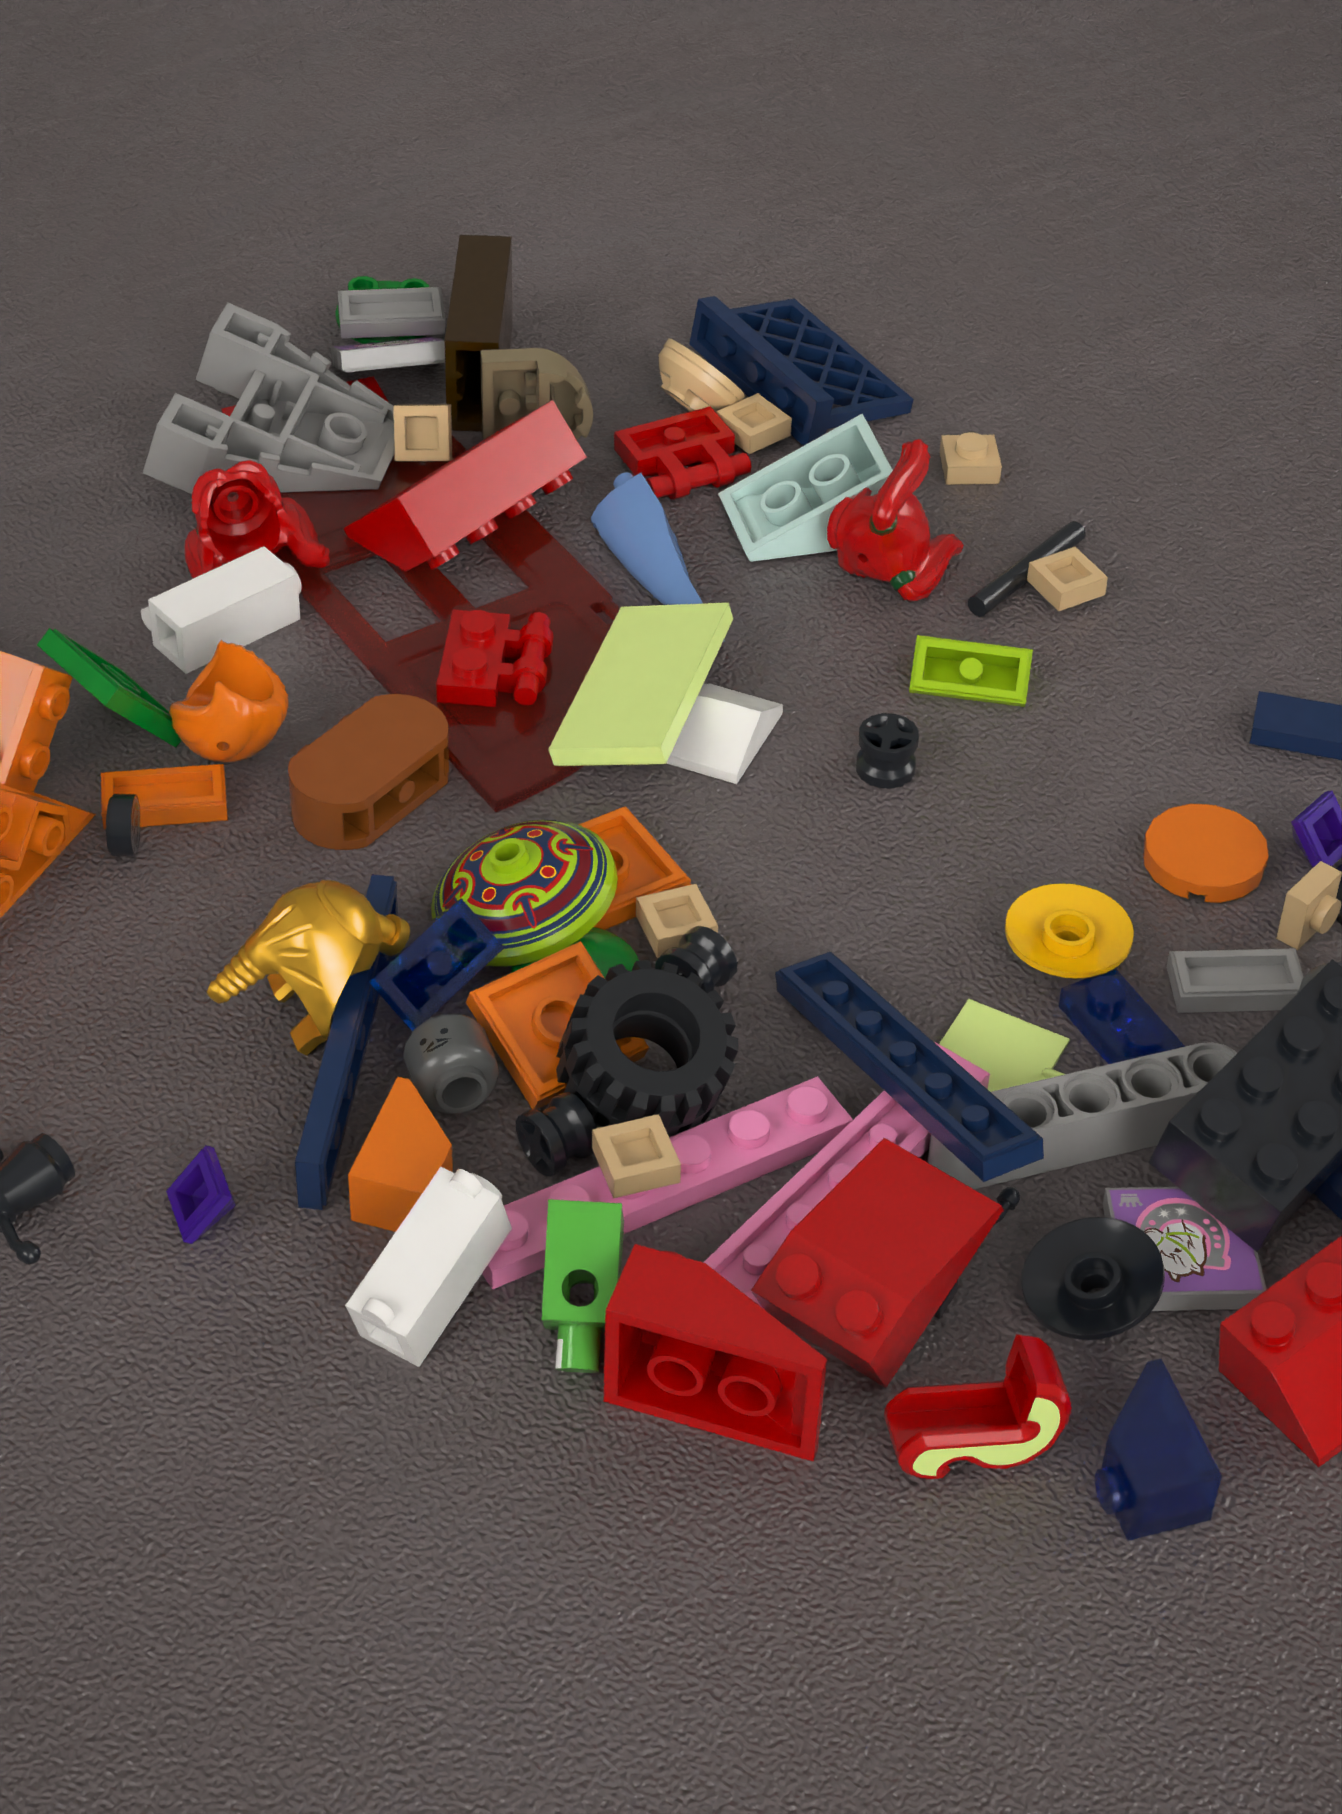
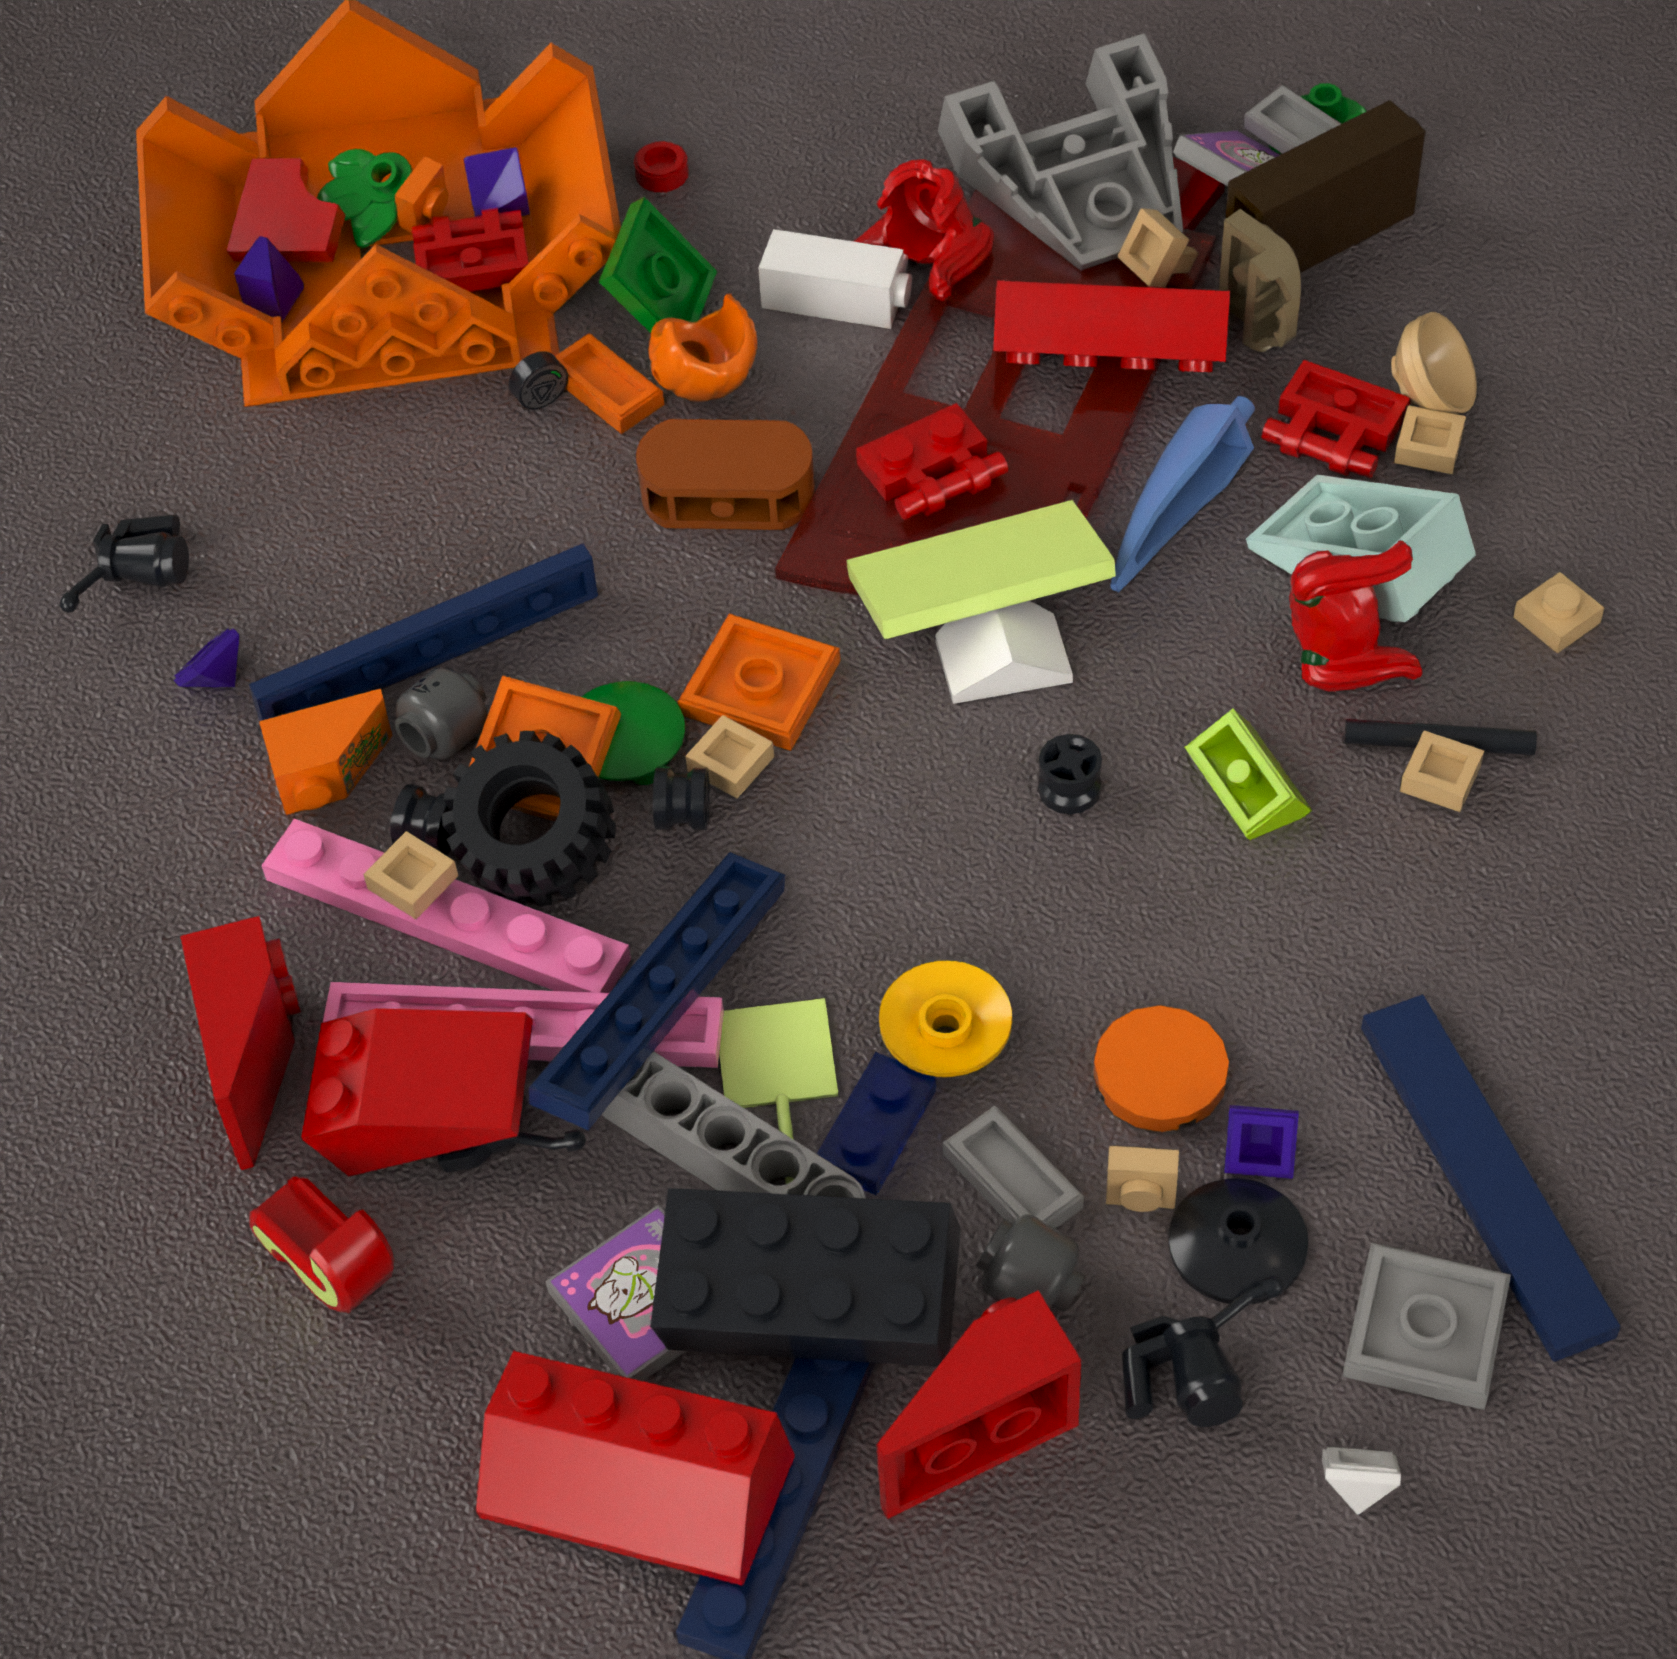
camera: 60 degrees right, 10 degrees up
(311, 948) = (454, 554): pearl gold piece -> none
(430, 1264) = (215, 822): white brick -> none
(436, 964) = (514, 639): clear blue slope -> none
(532, 886) = (670, 645): dish -> none
(587, 1248) = (288, 892): bright green torso -> none
(759, 366) = (1509, 414): dark blue fence -> none
(1087, 1257) = (535, 1245): black dish -> none
(1156, 1461) = (376, 1385): clear blue slope -> none

